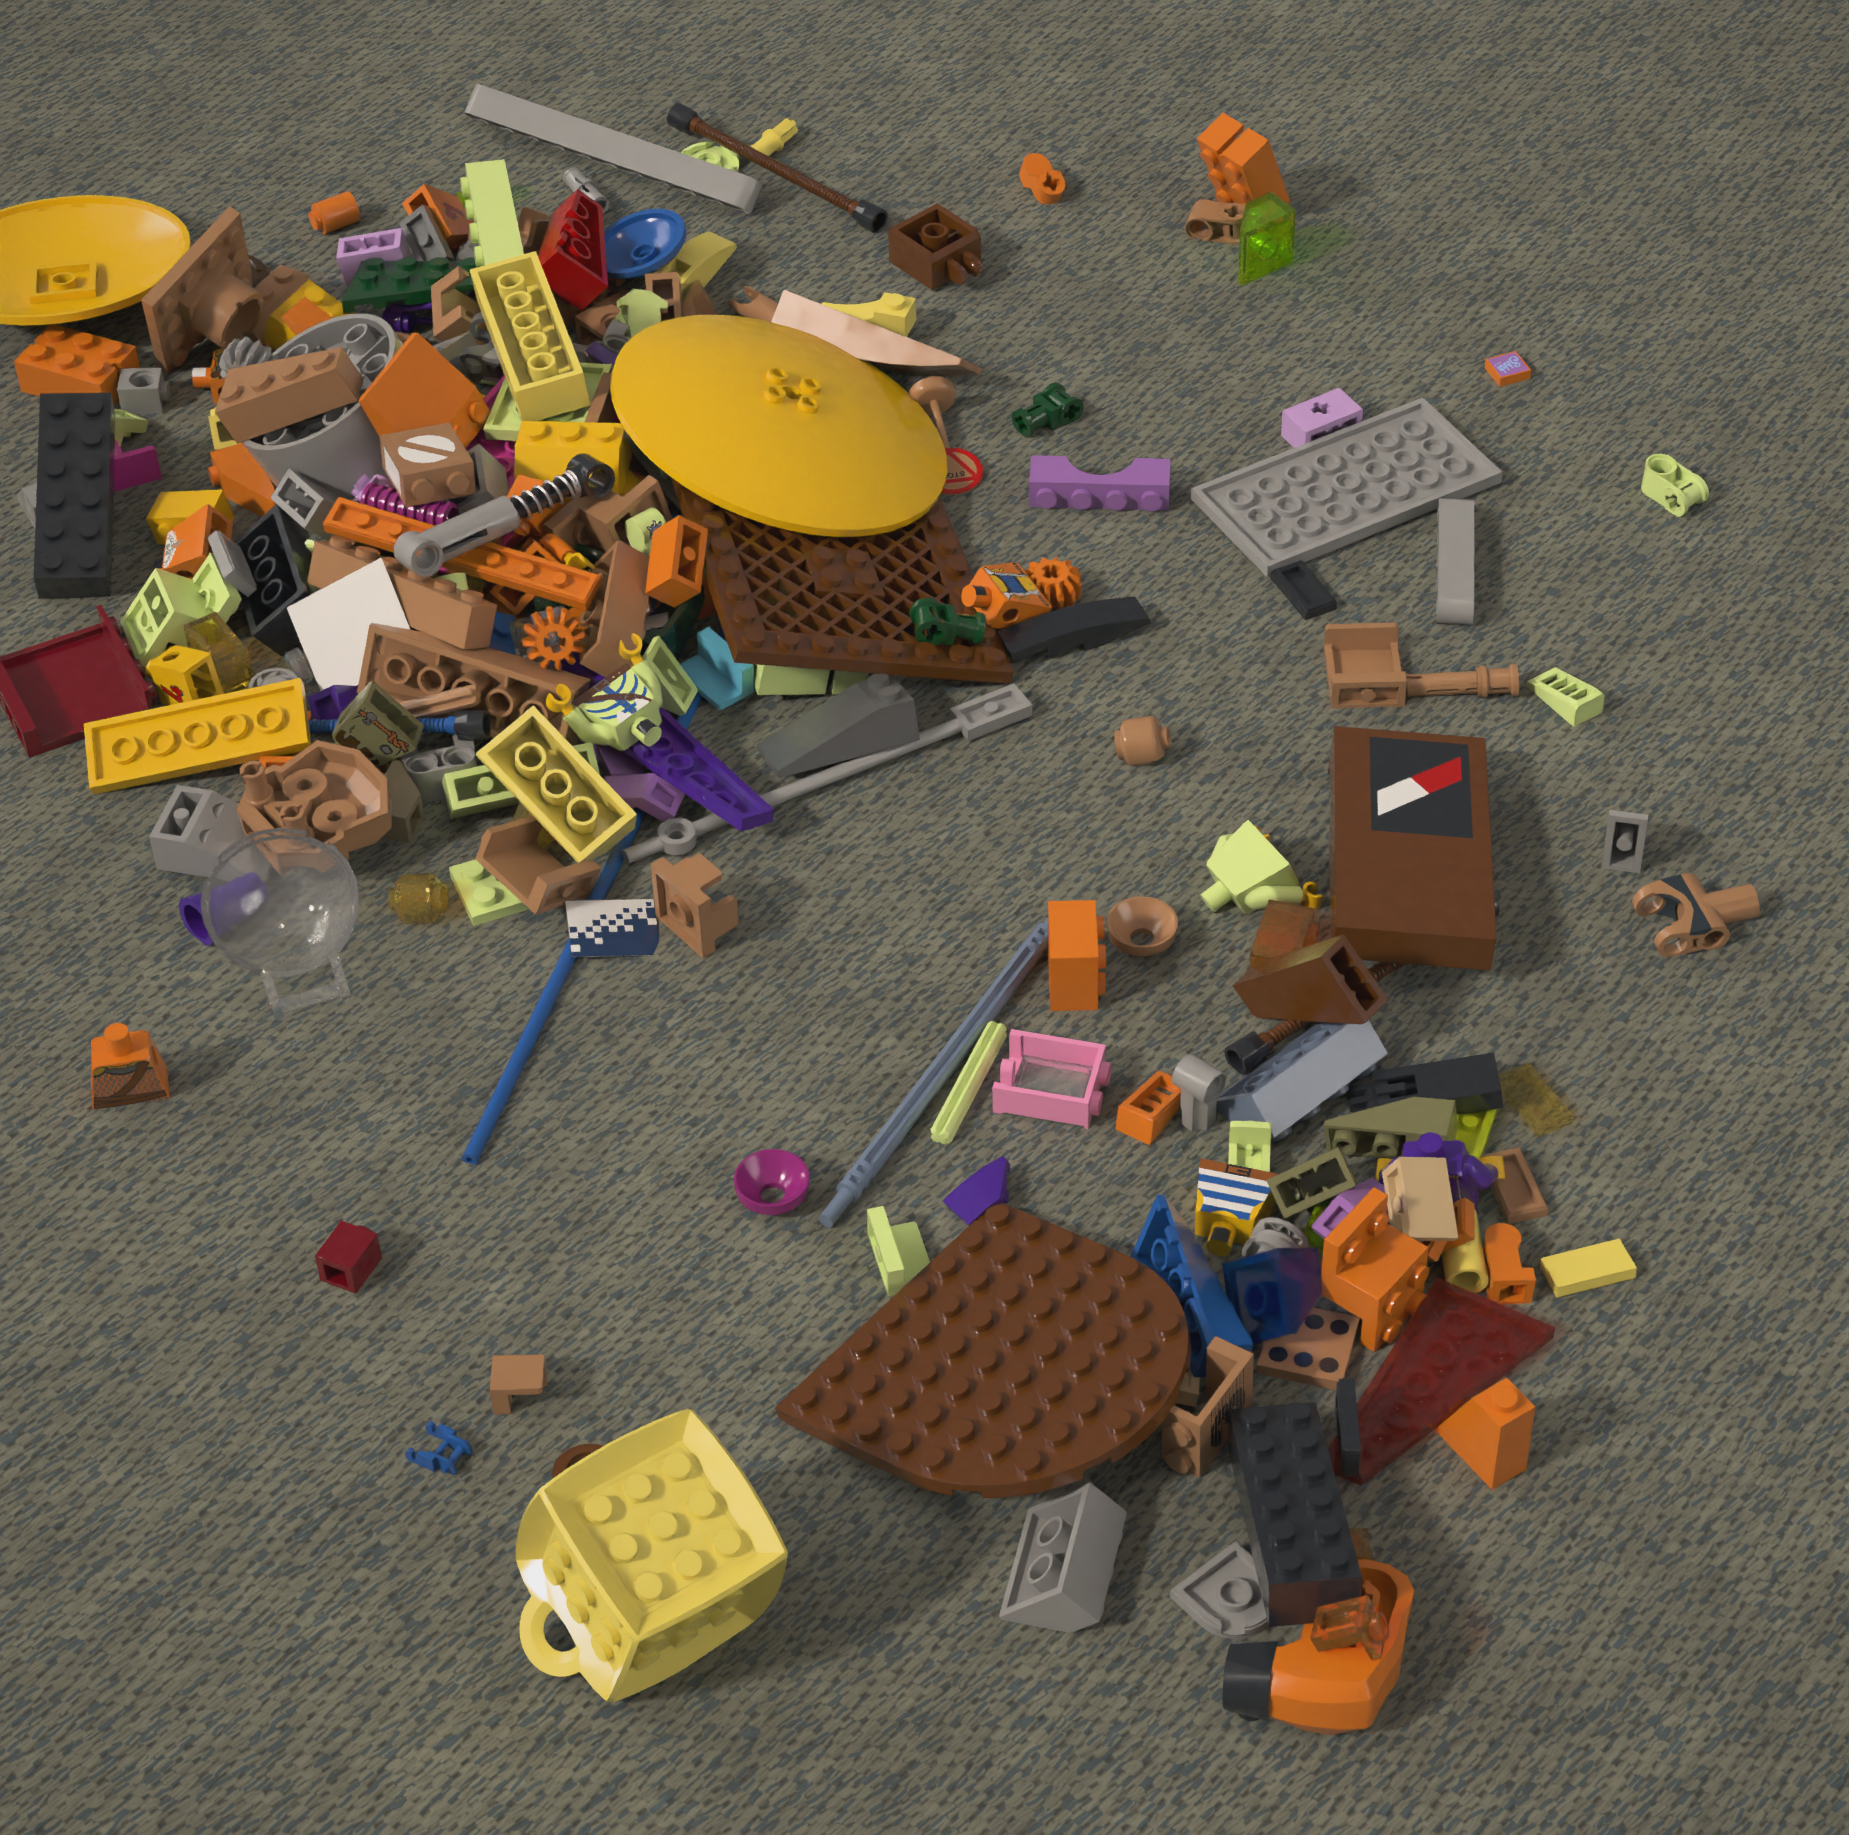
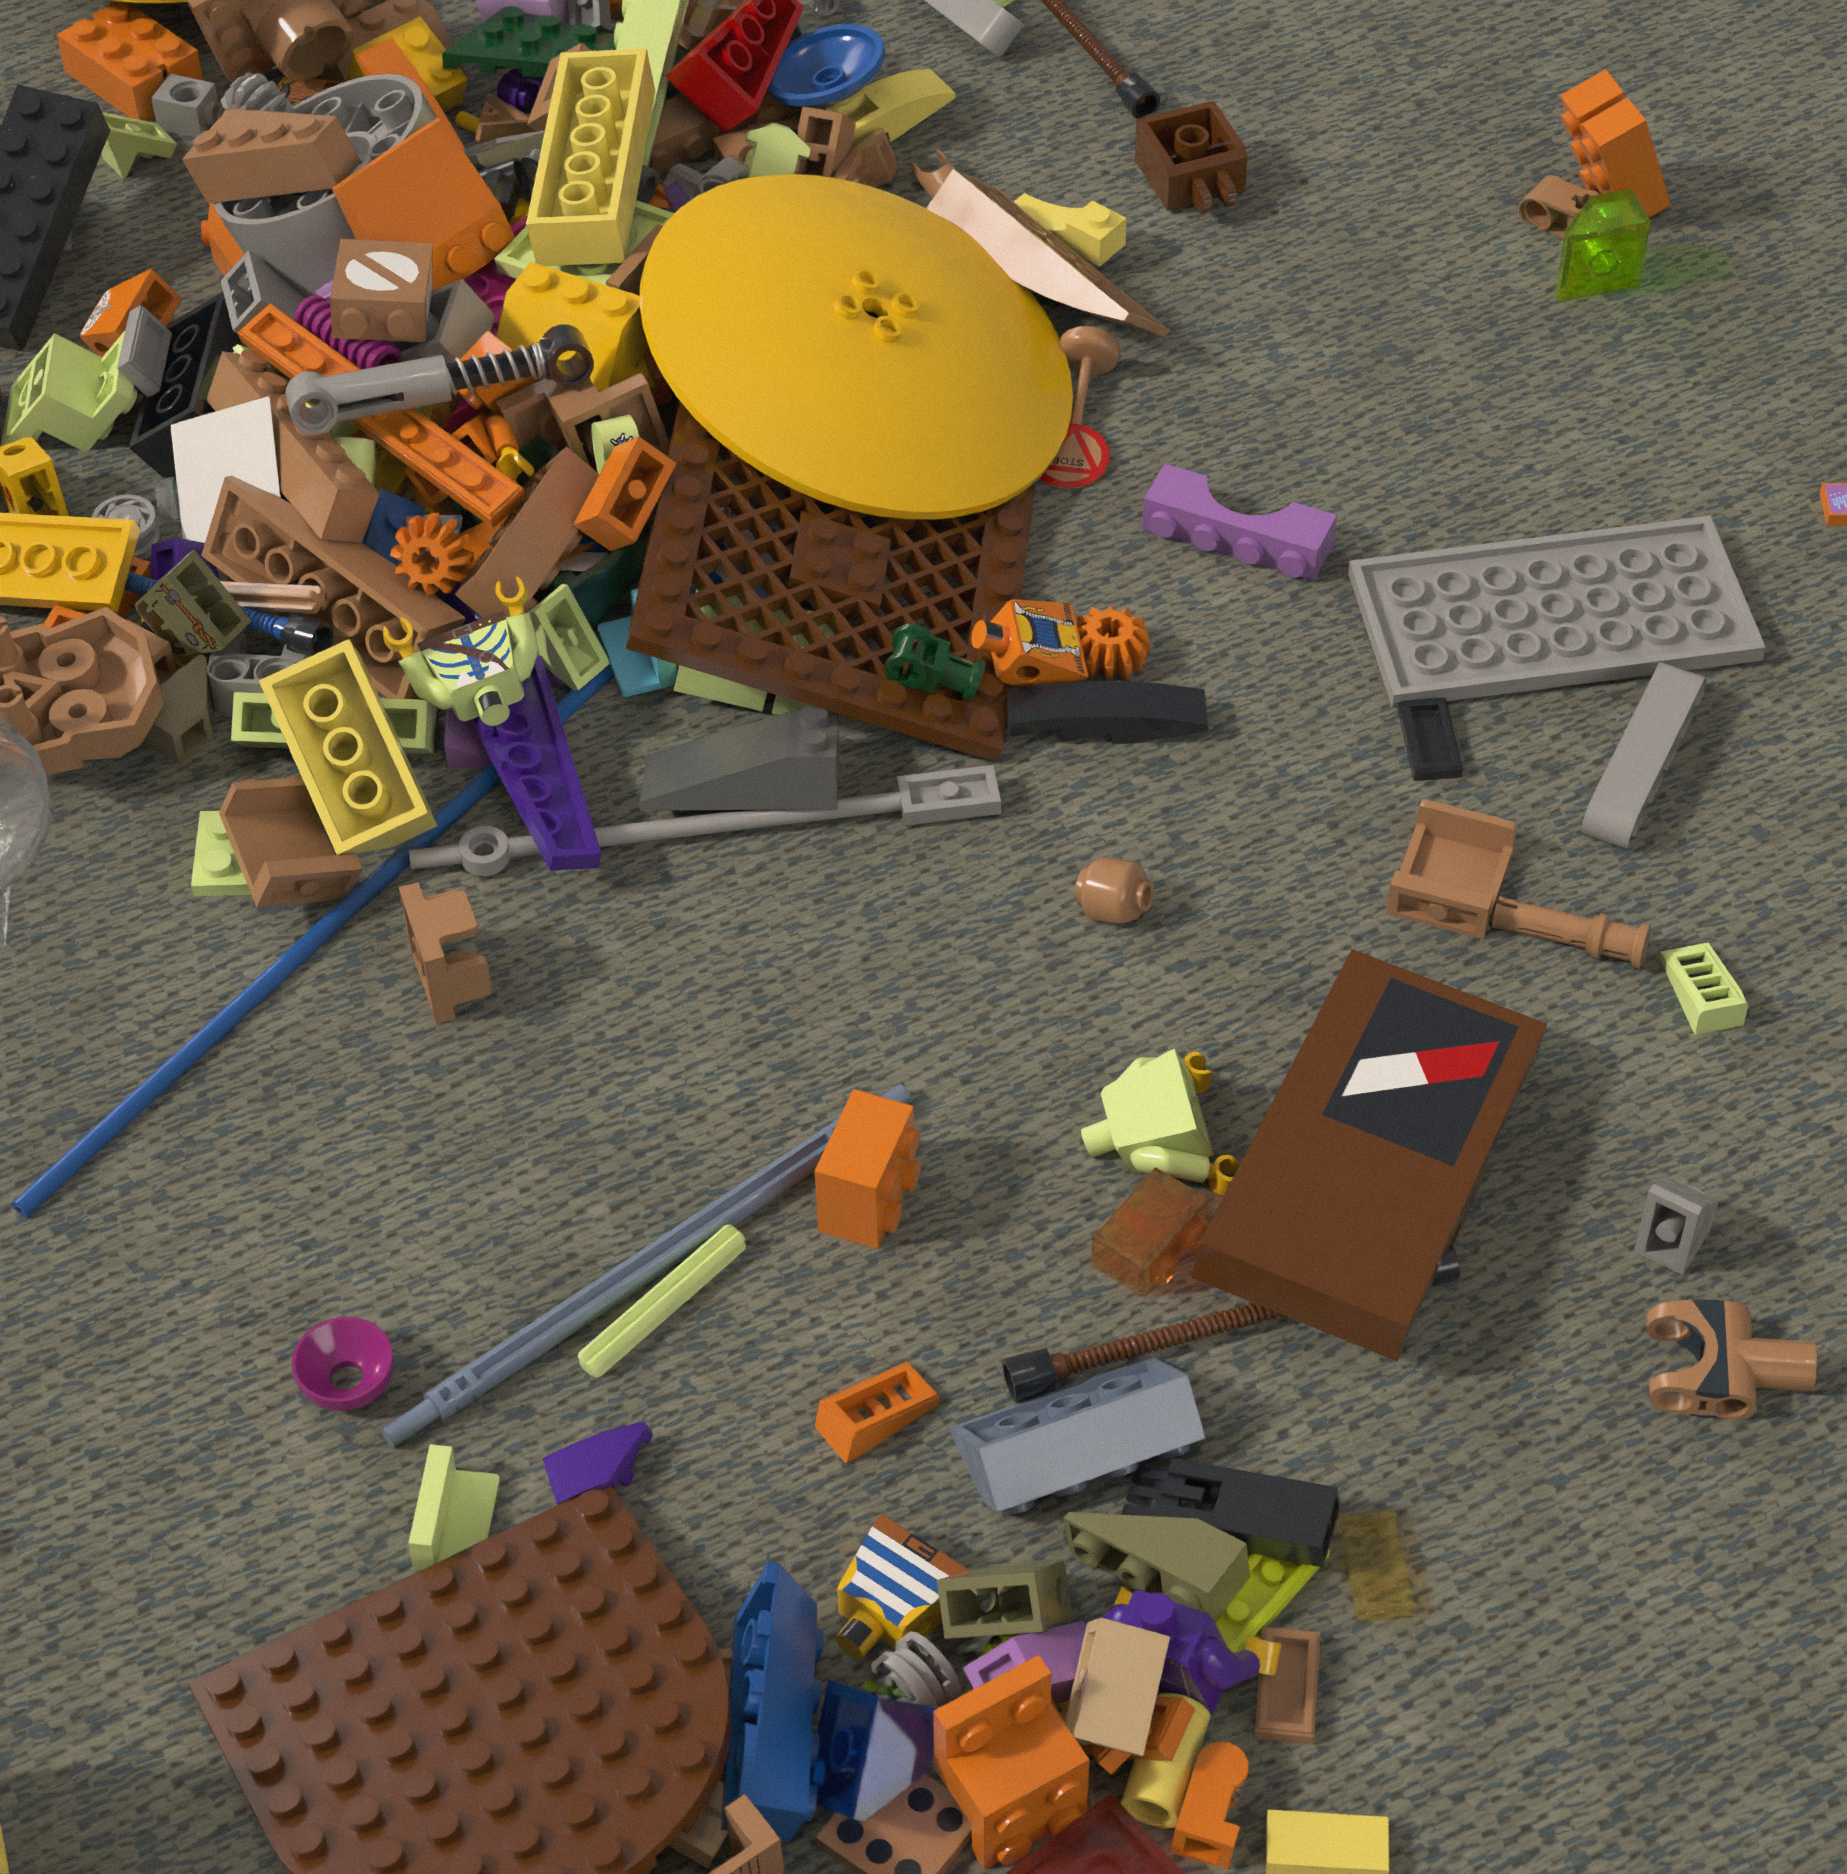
camera: 20 degrees right, 5 degrees up
(135, 467) = (119, 199): dark pink panel -> none
(176, 506) = (138, 256): yellow brick -> none
(227, 651) = (83, 459): clear yellow brick -> none
(418, 898) = (140, 843): clear yellow head -> none
(612, 927) = (346, 950): sticker -> none
(648, 793) = (465, 781): medium lavender slope -> none
(1041, 178) = (1372, 98): orange piece -> none
(1048, 409) = (1225, 407): dark green connector -> none
(1052, 1078) = (763, 1333): bright pink window -> none
(1142, 916) = (981, 1134): medium nougat piece -> none
(1200, 1089) = (926, 1414): light grey piece -> none
(1250, 1144) = (959, 1519): yellowish green bracket -> none
(1313, 985) = (1141, 1316): reddish brown slope -> none
(1319, 417) = (1561, 507): lavender brick -> none

